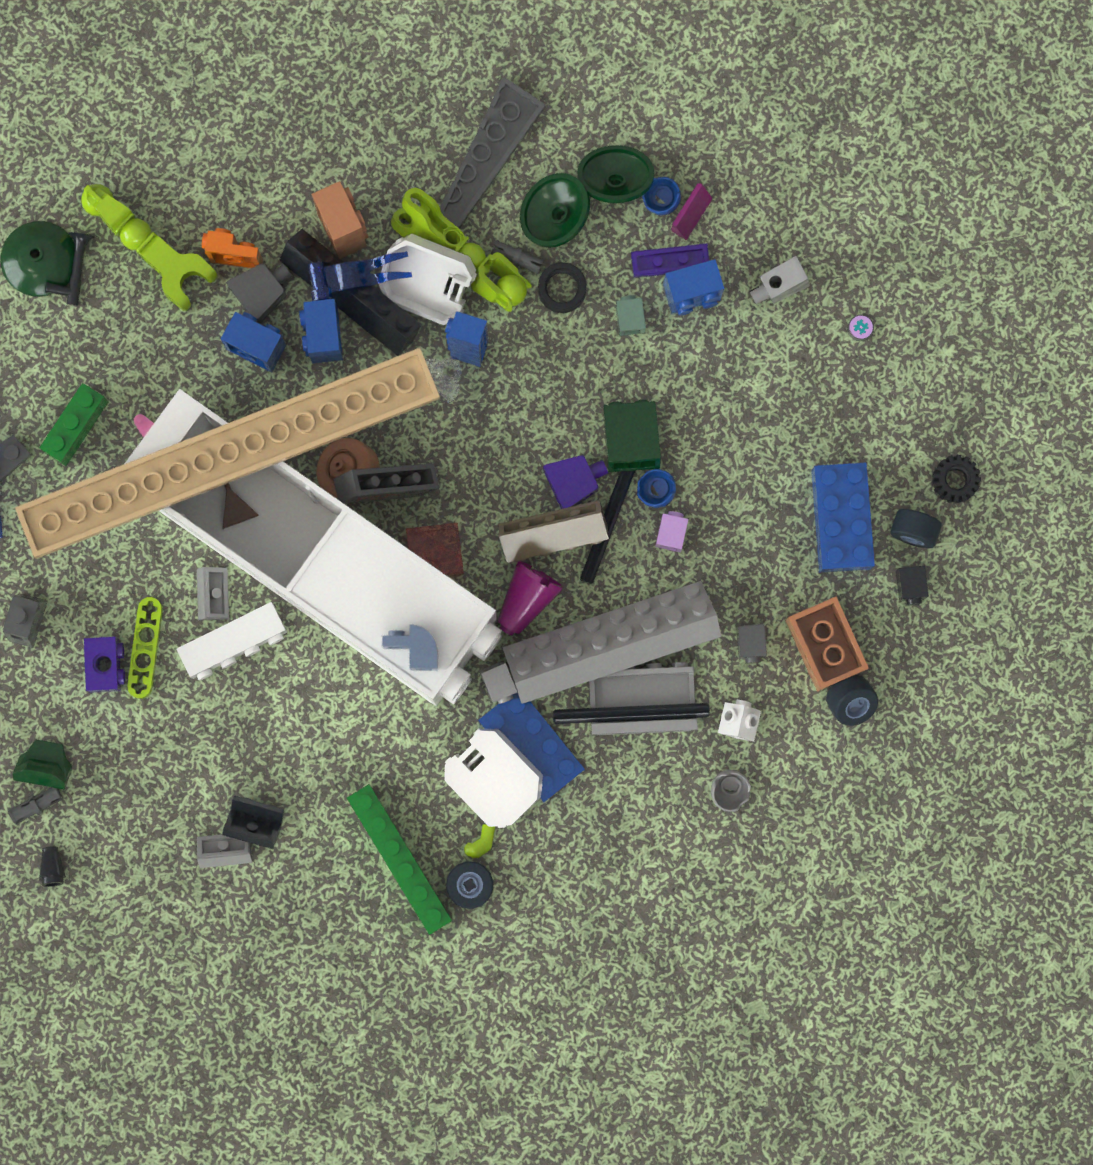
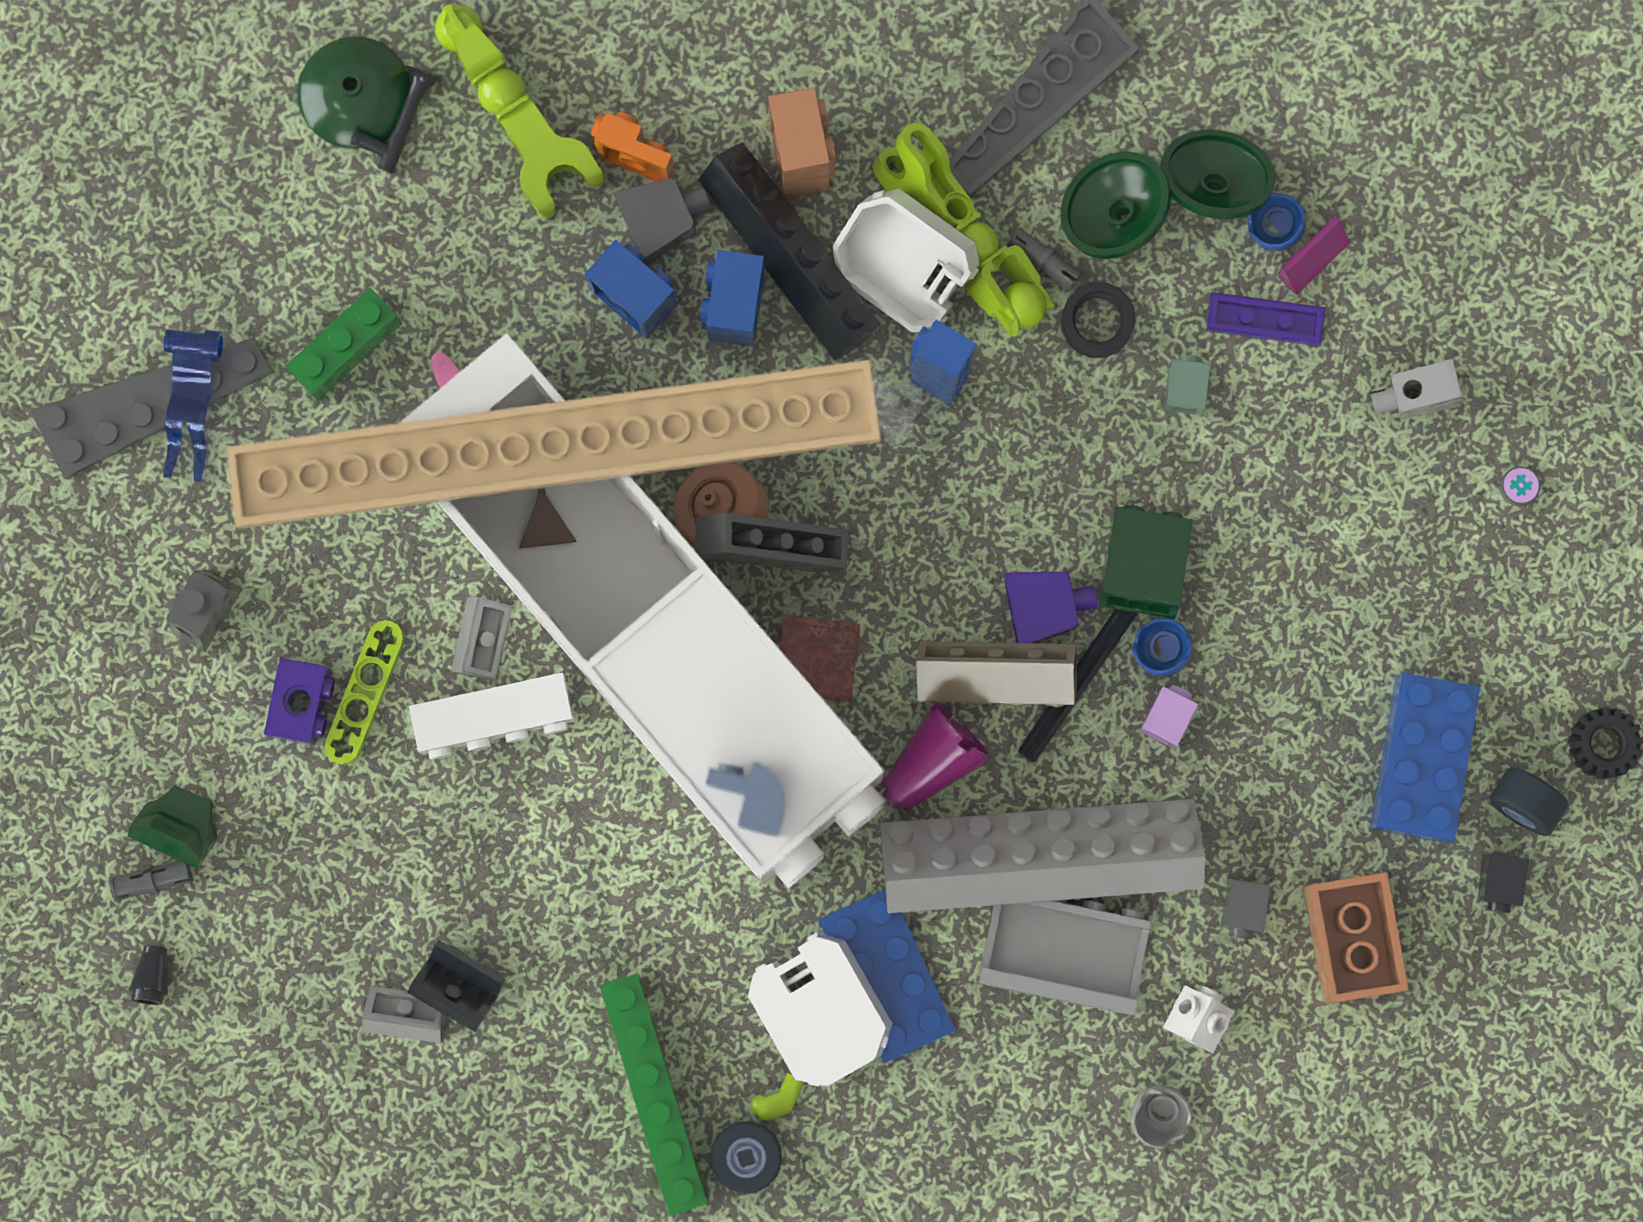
camera: 20 degrees right, 0 degrees up
(351, 275) = (797, 227): clear blue flag -> none
(498, 682) = (861, 873): light grey brick -> none
(631, 713) = (1044, 966): black axle -> none
(693, 287) = (1290, 367): blue brick -> none
(852, 700) = (1372, 1030): black wheel -> none

